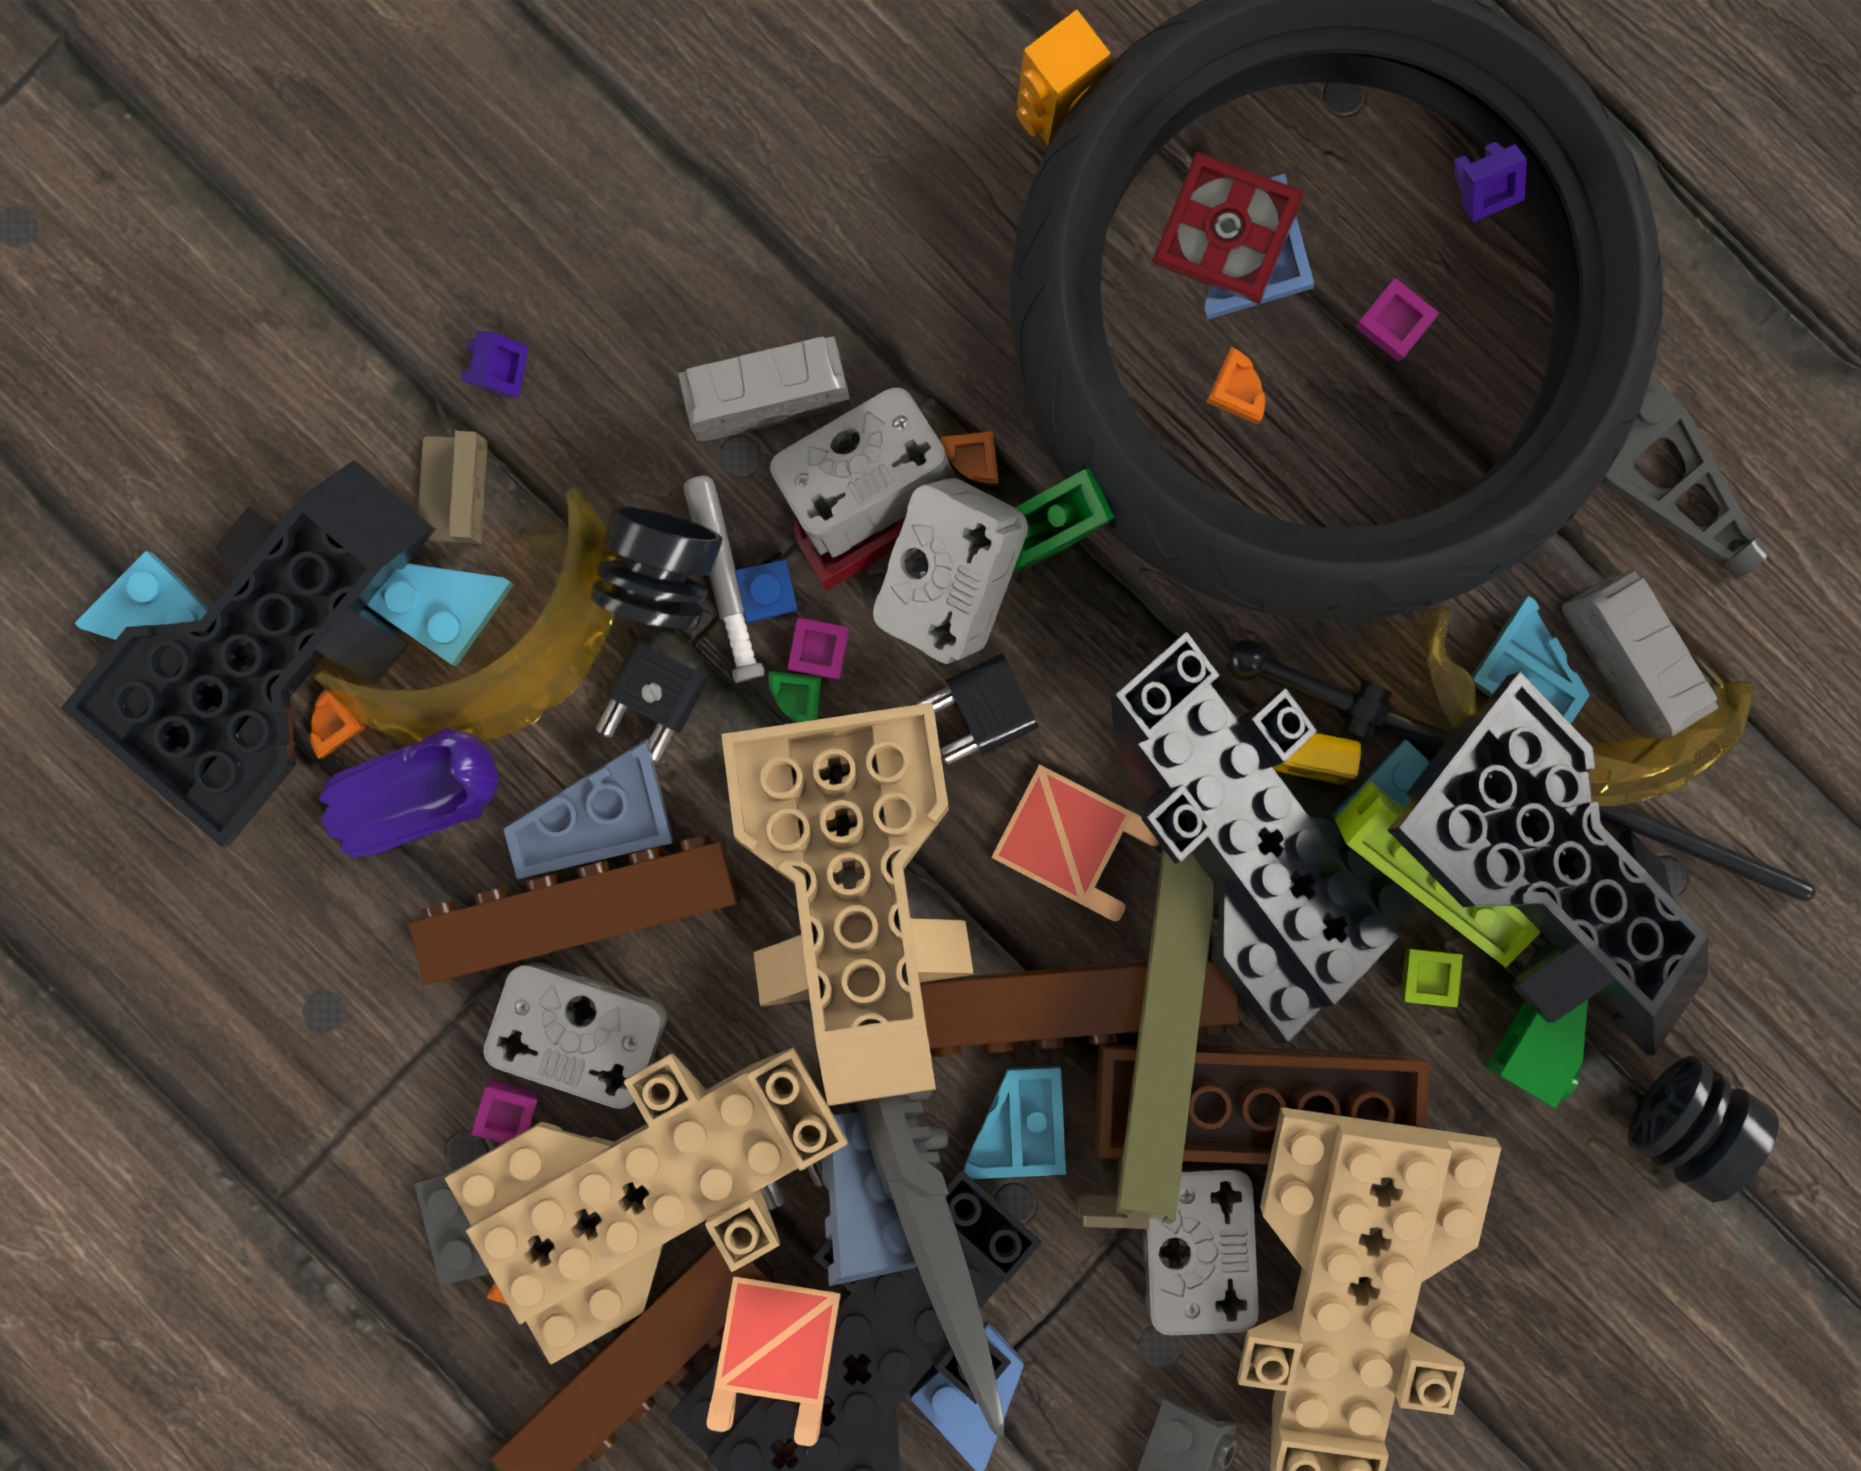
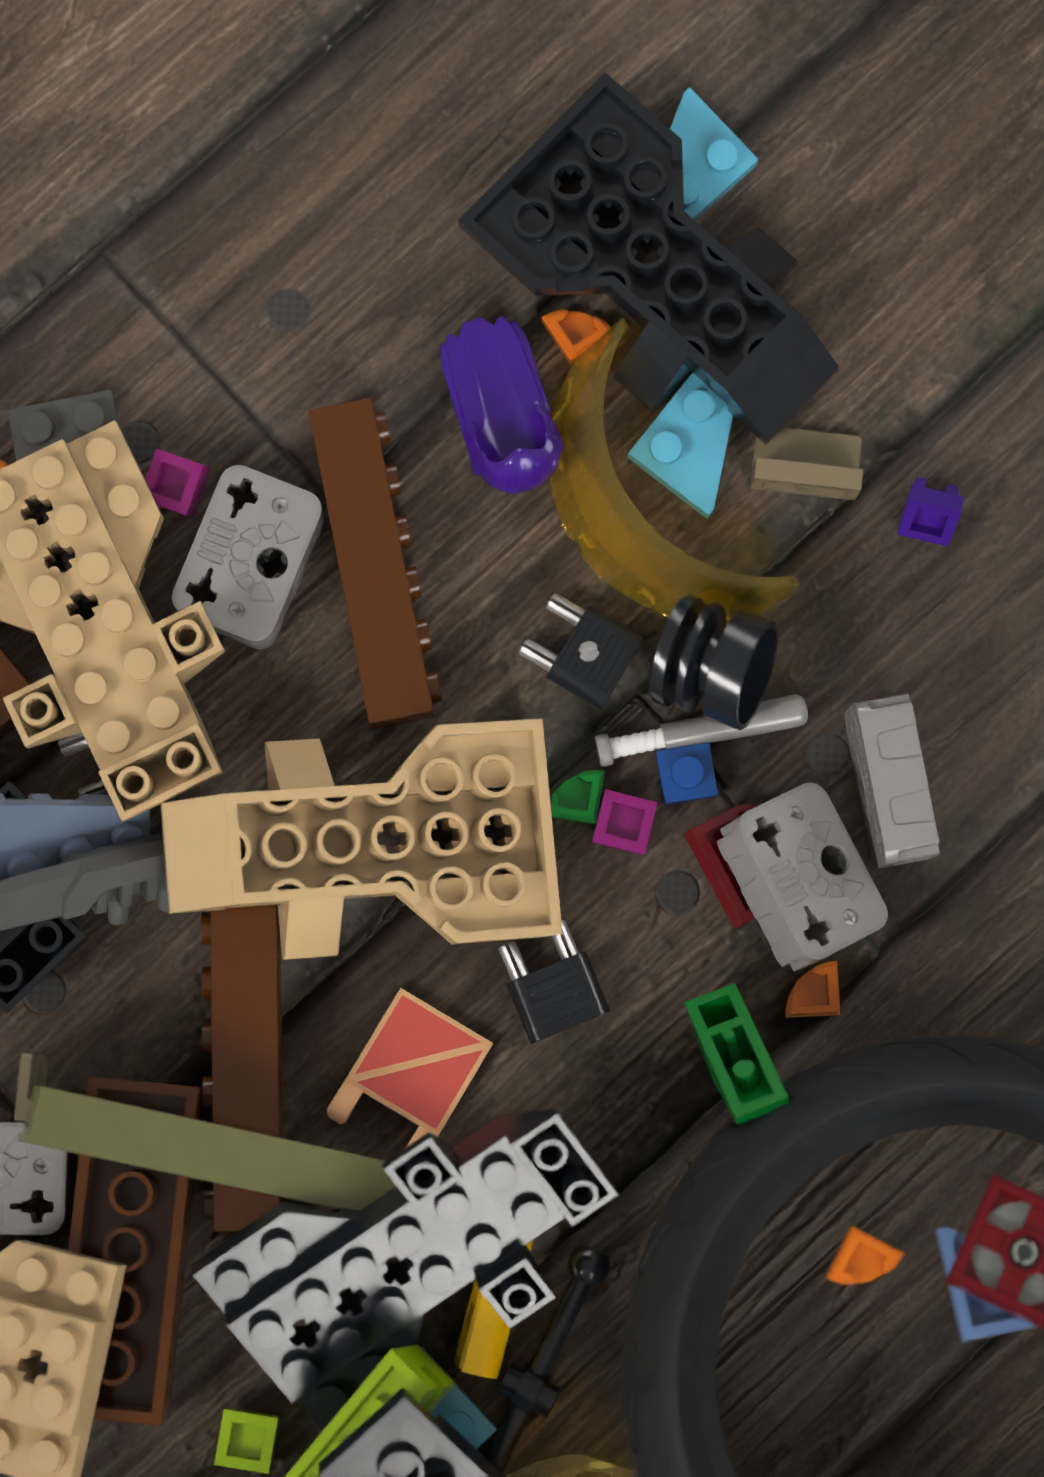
camera: 90 degrees right, 5 degrees down
(594, 819) = (464, 587): sand blue wing -> none
(950, 569) = (696, 959): light grey axle -> none
(1022, 1127) = (122, 1002): medium azure wing -> none
(1397, 319) = (924, 1426): magenta plate -> none

